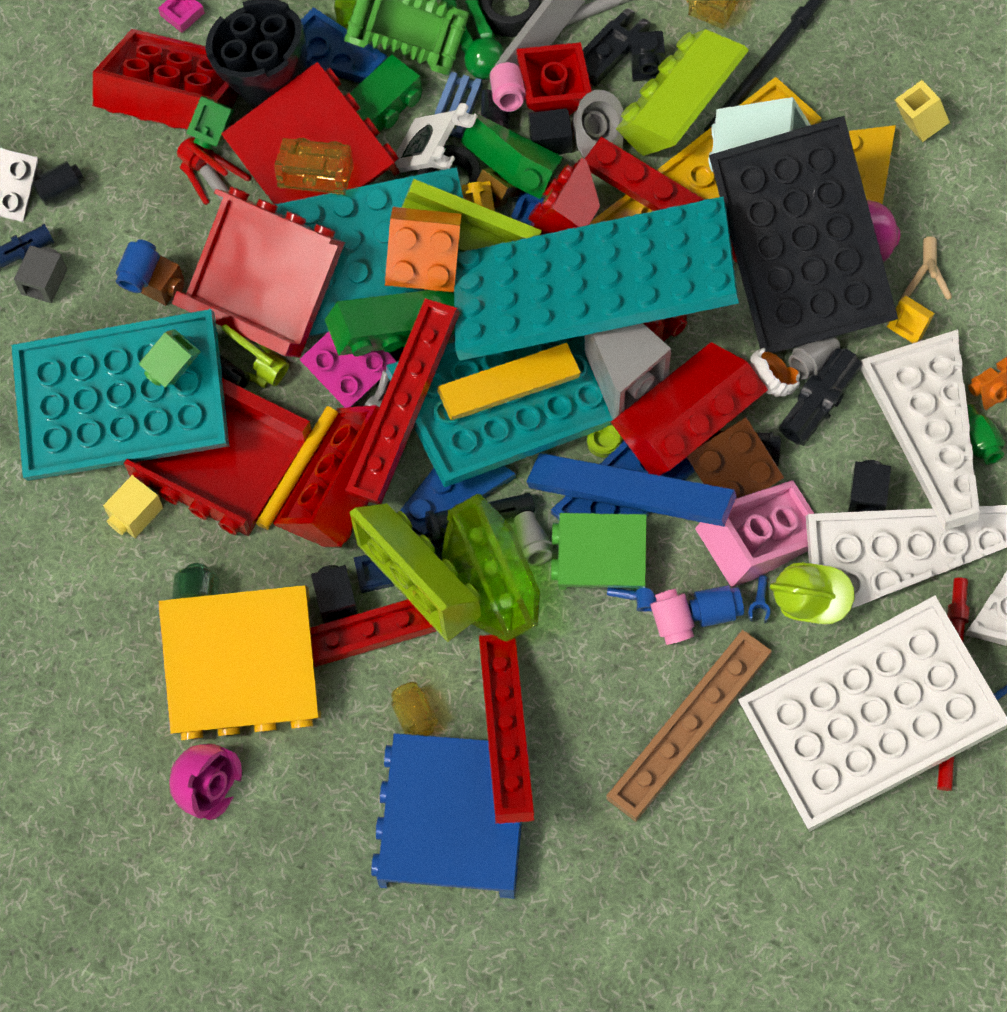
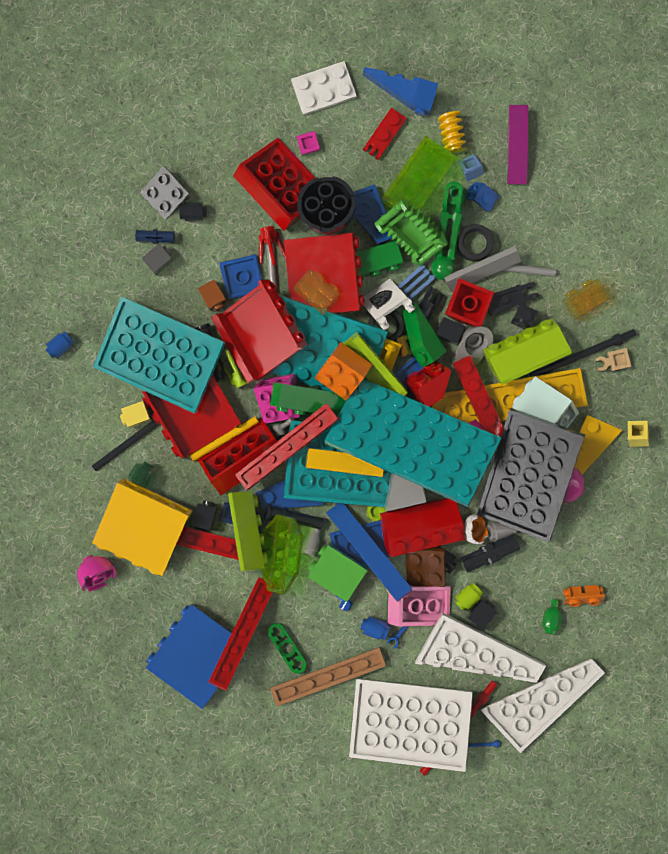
camera: 25 degrees right, 20 degrees up
(137, 266) = (203, 291): blue brick -> none
(141, 567) = (123, 446): none -> black bar
(169, 358) = (188, 359): bright green brick -> none
(182, 231) = (240, 276): none -> blue tile
(209, 122) = (282, 229): green bracket -> none
(413, 710) = (208, 595): clear yellow brick -> none
(507, 86) = (442, 296): bright pink brick -> none
(623, 723) = (299, 657): none -> green beam
(672, 616) = (351, 622): bright pink brick -> none
(813, 593) = (421, 650): lime piece -> none
(818, 41) = (616, 360): none -> tan plate
(831, 475) = (468, 597): none -> lime brick
(912, 320) = (559, 540): yellow tile -> none
(928, 412) = (534, 590): white wing -> none
(929, 264) = (588, 515): tan plant -> none

